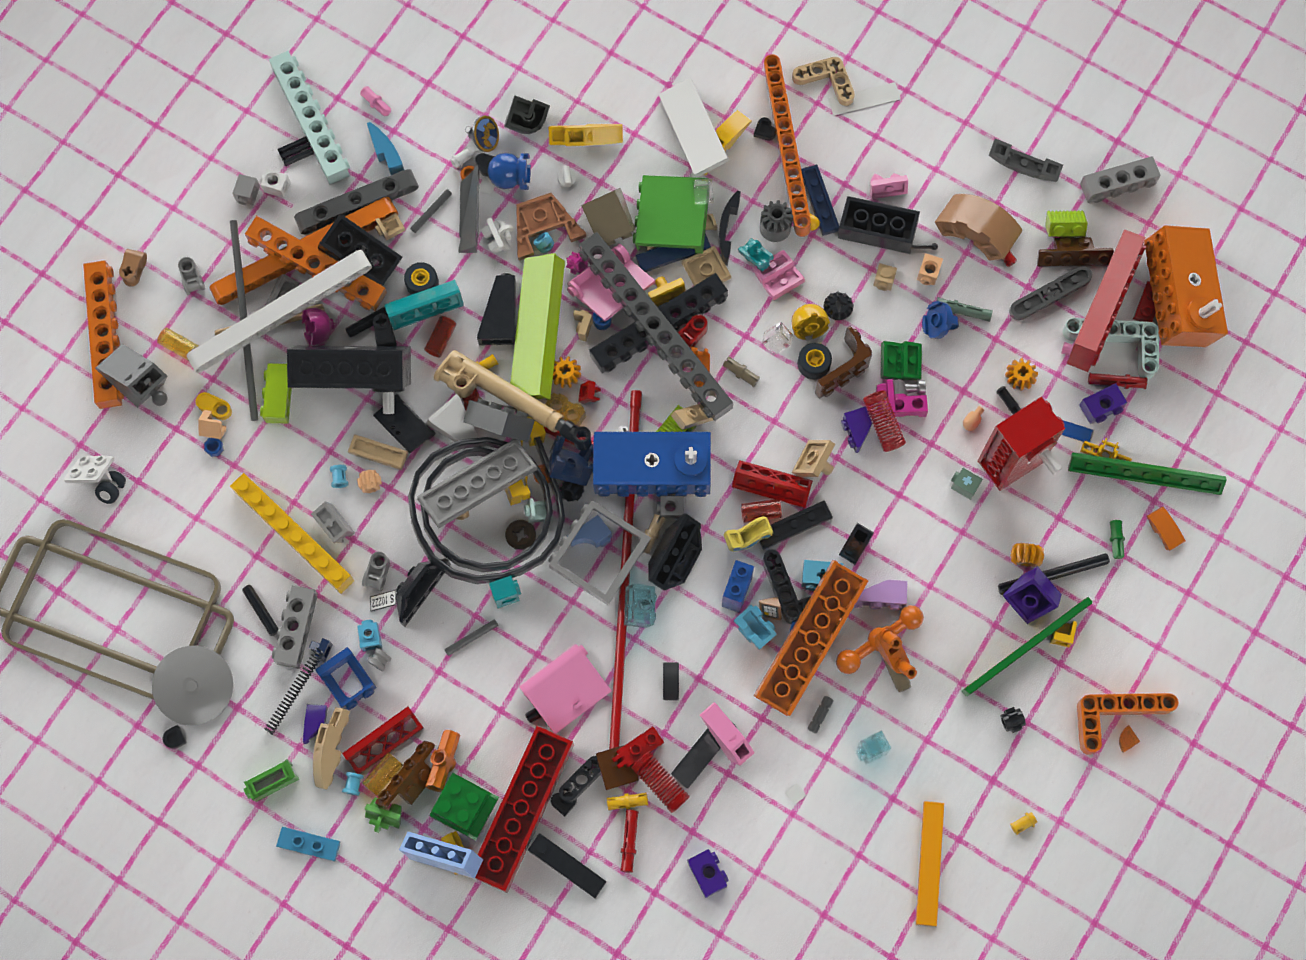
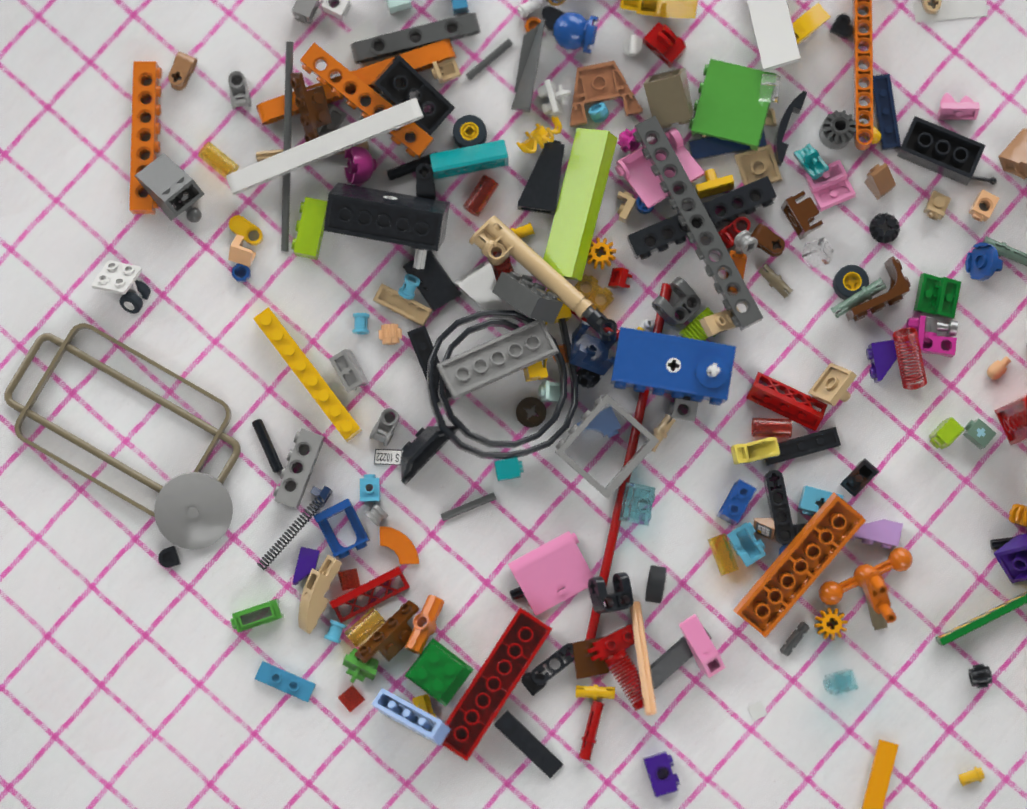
camera: 10 degrees right, 10 degrees up
(262, 276) = (311, 105): none -> reddish brown bracket
(359, 728) = (349, 579): none -> clear red tile
(379, 850) = (351, 698): none -> clear red tile
(381, 432) = (409, 286): none -> medium azure bush
(401, 485) = (423, 347): none -> black tile
(406, 685) = (399, 544): none -> orange tile
(489, 271) = (540, 136): none -> yellow animal
(597, 170) = (664, 44): none -> red brick
(615, 700) = (599, 594): none -> black piece
(654, 396) = (668, 311): none -> dark grey piece
(669, 757) = (643, 659): none -> light nougat axle
(675, 553) = (680, 457): black wedge -> none
(705, 337) = (745, 242): none -> light grey wheel
(725, 334) = (767, 239): none -> reddish brown piece
(734, 641) = (723, 554): none -> clear yellow pin
(752, 301) = (801, 214): none -> reddish brown panel
(809, 321) = (853, 240): yellow cylinder -> none
(825, 261) = (880, 180): none -> medium nougat slope
(828, 367) = (859, 297): none -> sand green pin
(845, 690) = (835, 628): none -> light orange gear
(933, 487) = (946, 433): none -> lime brick

